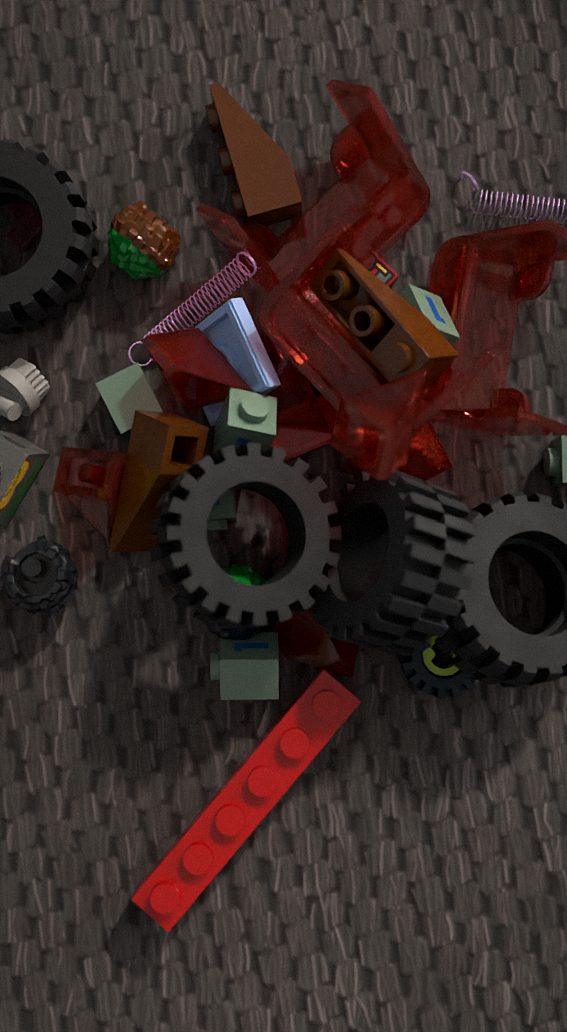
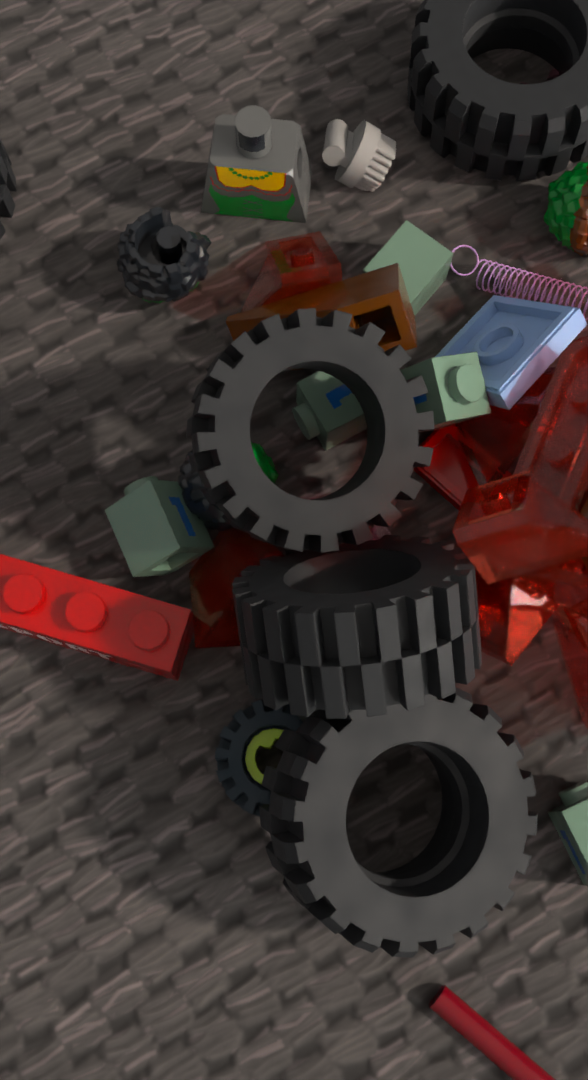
camera: 65 degrees right, 10 degrees down
(192, 367) = (478, 306): clear red slope -> none

